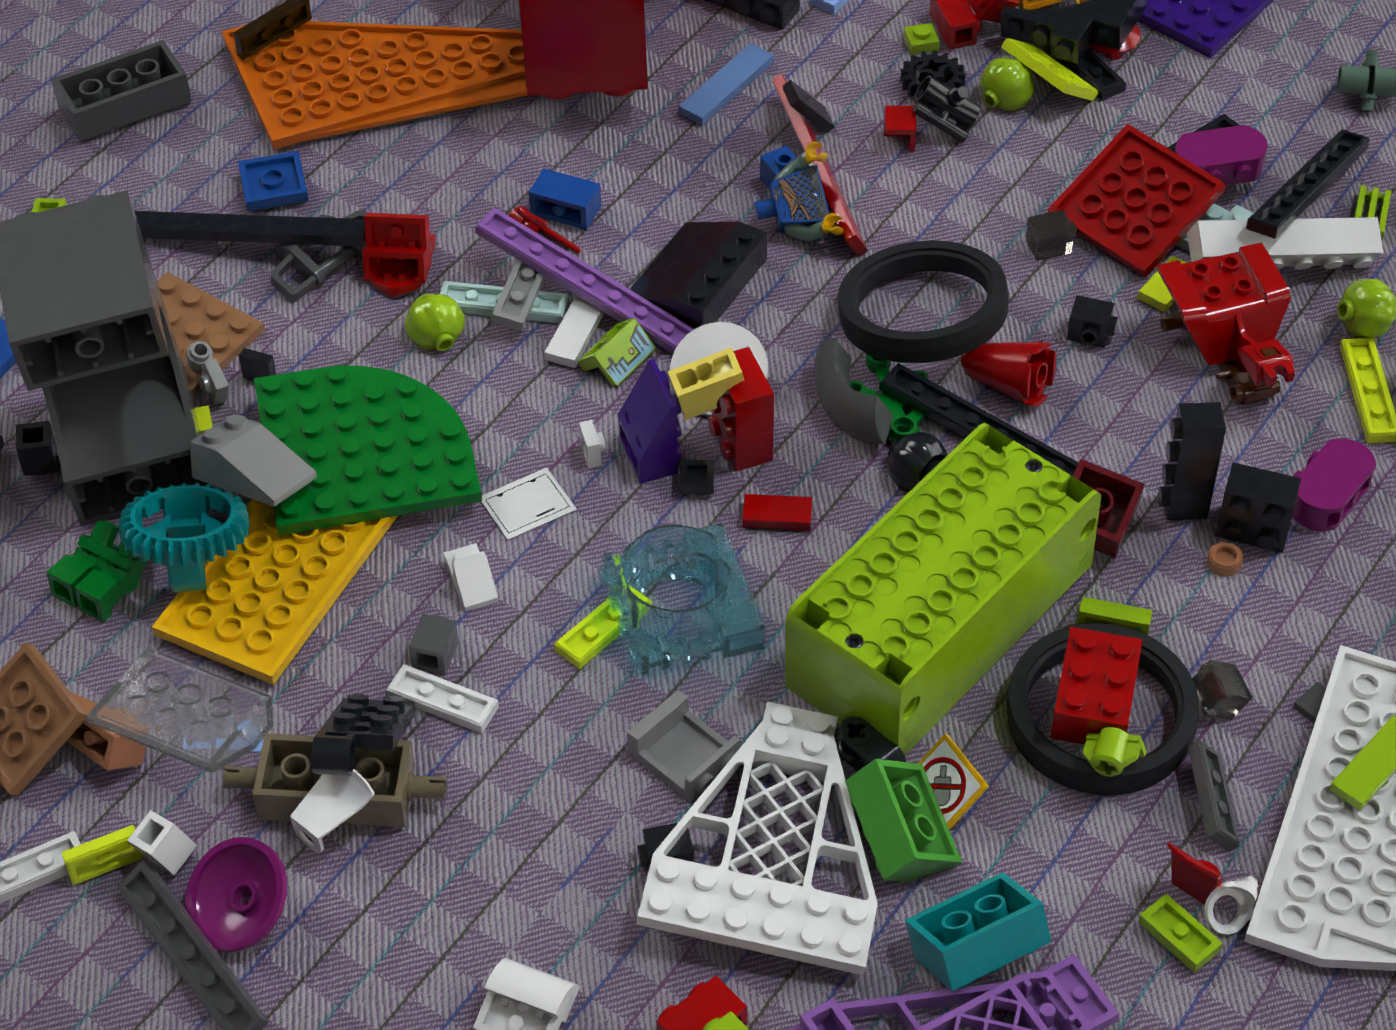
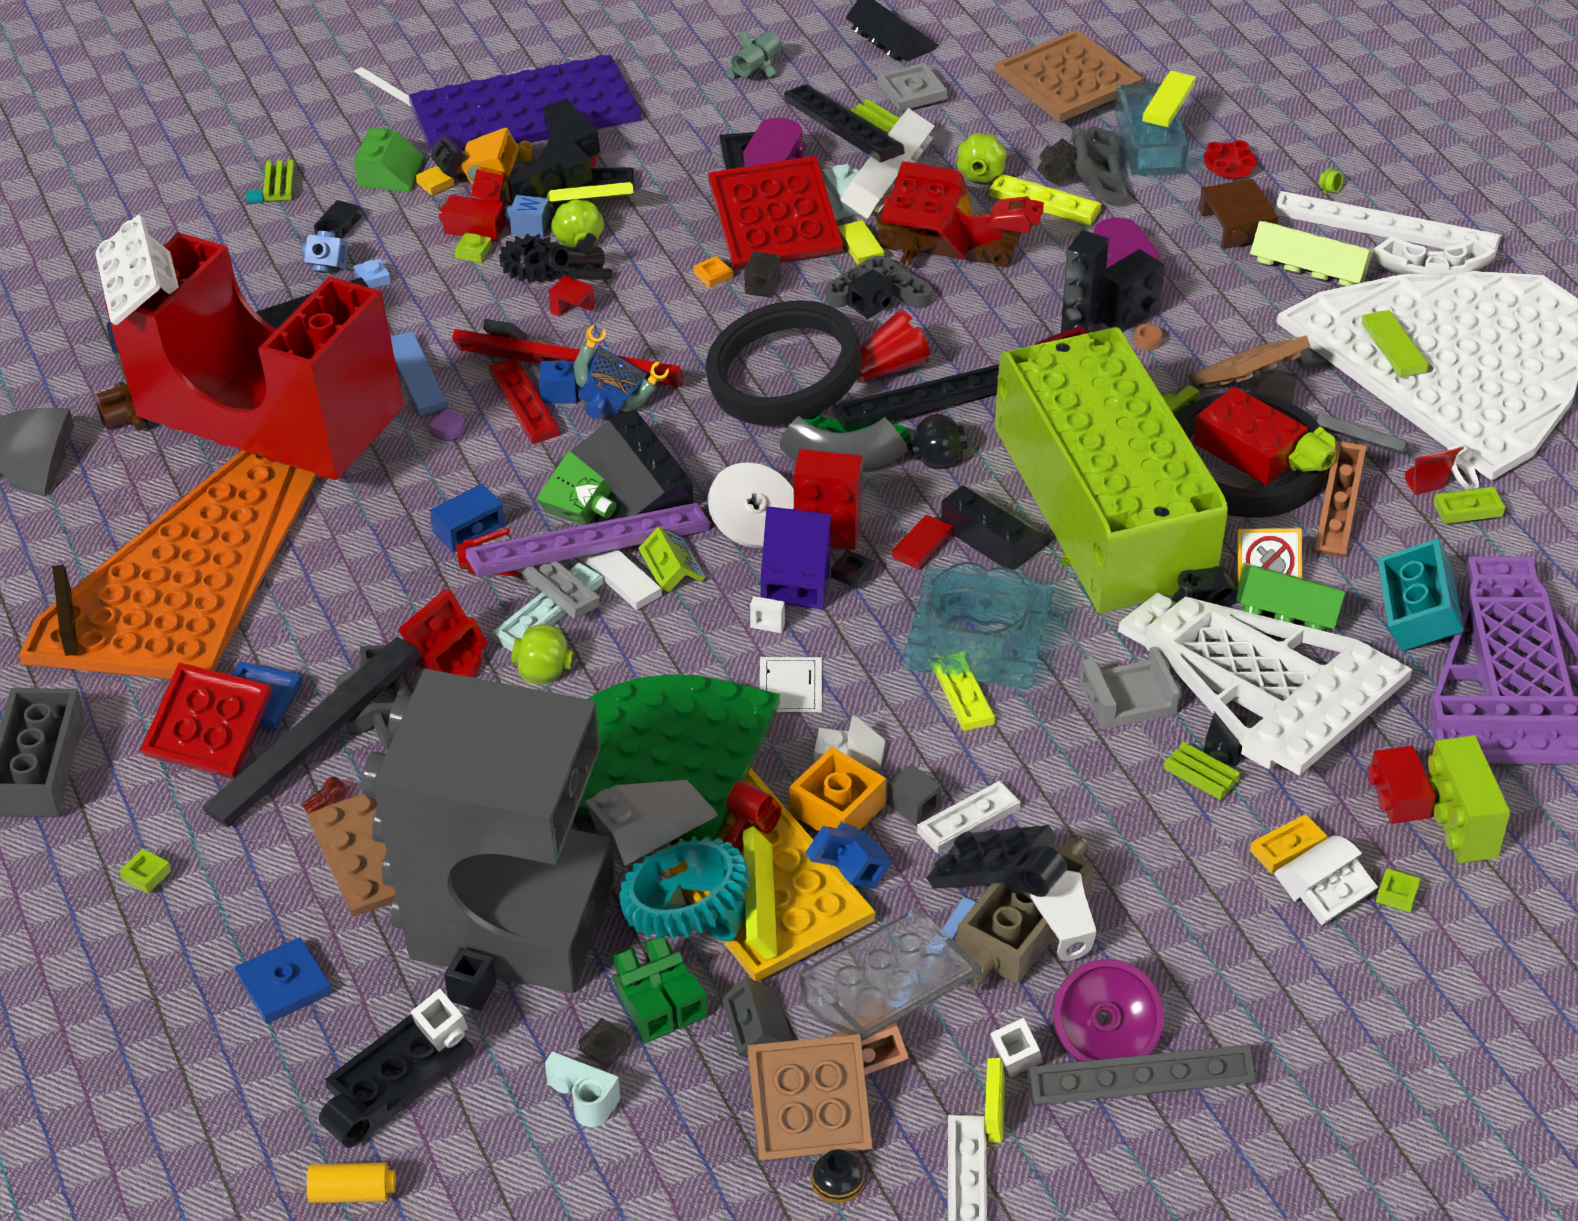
camera: 60 degrees left, 5 degrees down
(27, 566) = (604, 1042): none -> clear smoke plate
(110, 654) = (755, 1015): none -> dark grey panel
(197, 275) = (332, 791): none -> clear red arm
(216, 163) = (206, 720): none -> red plate
(229, 583) = (760, 897): none -> neon yellow tile
(313, 531) = (750, 808): none -> red beam
(328, 625) = (852, 852): none -> blue brick
(387, 588) = (837, 792): none -> light orange brick
(560, 957) = (1287, 843): none -> yellow plate
(622, 827) = (1204, 767): none -> lime tile
(642, 246) = (576, 492): none -> bright green torso
(677, 134) = (447, 425): none -> medium lavender tile
(705, 381) = (821, 482): light yellow arch -> none
(745, 167) = (524, 401): none -> red tile
(829, 533) = (992, 528): none -> black slope
(986, 46) = (528, 215): none -> medium blue brick
(1031, 202) = (713, 272): none -> light orange tile
(1092, 813) = (1340, 499): none -> nougat slope
(1127, 313) = (913, 291): none -> dark grey beam
(1226, 647) = (1246, 363): none -> medium nougat plate

